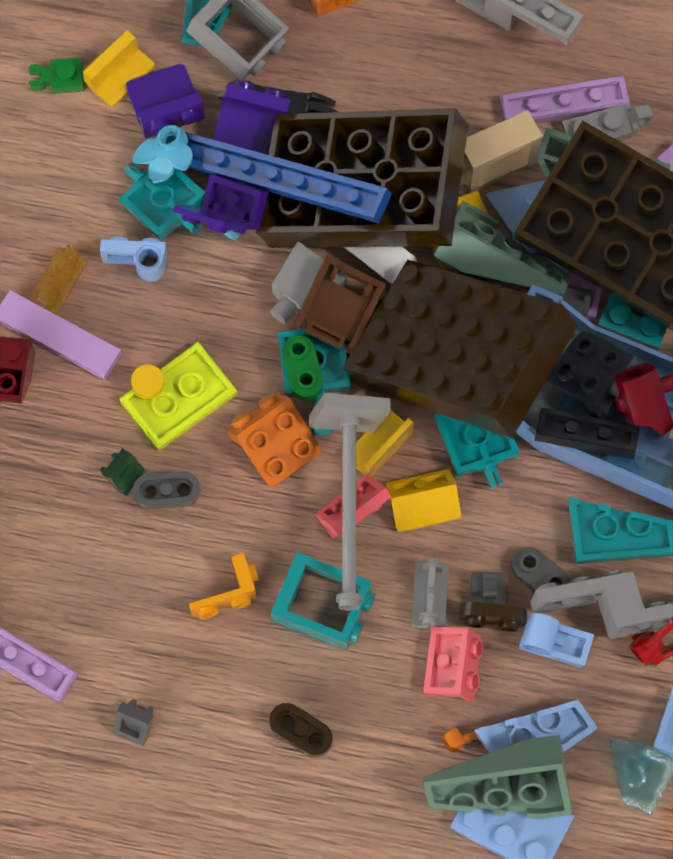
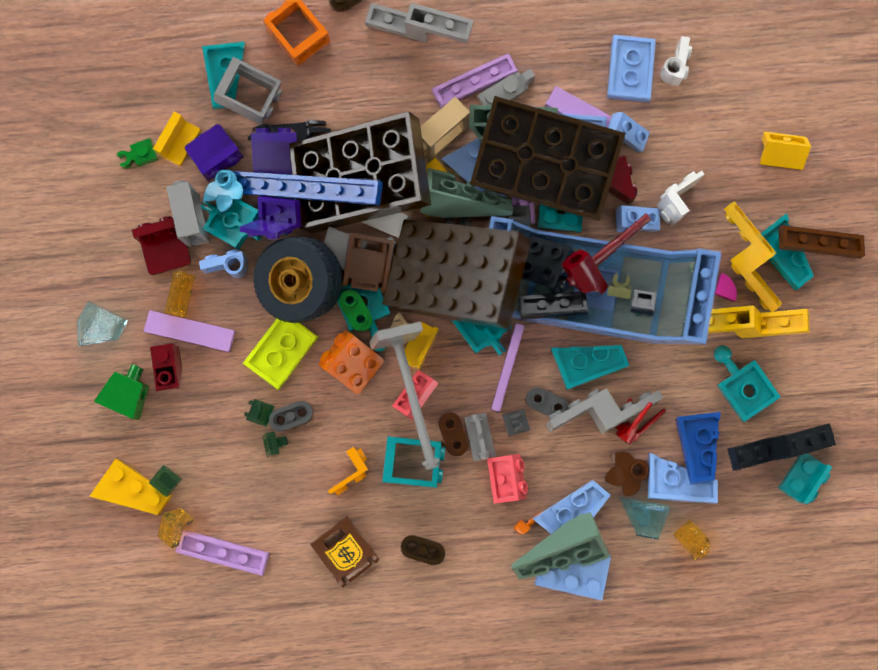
camera: 15 degrees left, 10 degrees up
(56, 206) = (161, 246): none -> dark red bracket
(105, 172) = (187, 213): none -> light grey window
(129, 521) = (272, 443): none -> clear green tile
(133, 722) = (314, 577): dark grey tile -> none
(147, 381) = (257, 348): yellow tile -> none
(189, 705) = (346, 556): none -> reddish brown container
(233, 299) = (297, 279): none -> black wheel
(392, 579) = (453, 434): none -> reddish brown plate
(424, 500) = (458, 375): yellow panel -> none
(497, 508) = (507, 368): none -> lavender tile
(506, 616) = (514, 442): dark brown plate -> none
(555, 641) = (568, 445): light blue plate -> none
(626, 705) = (623, 472): none -> reddish brown plate

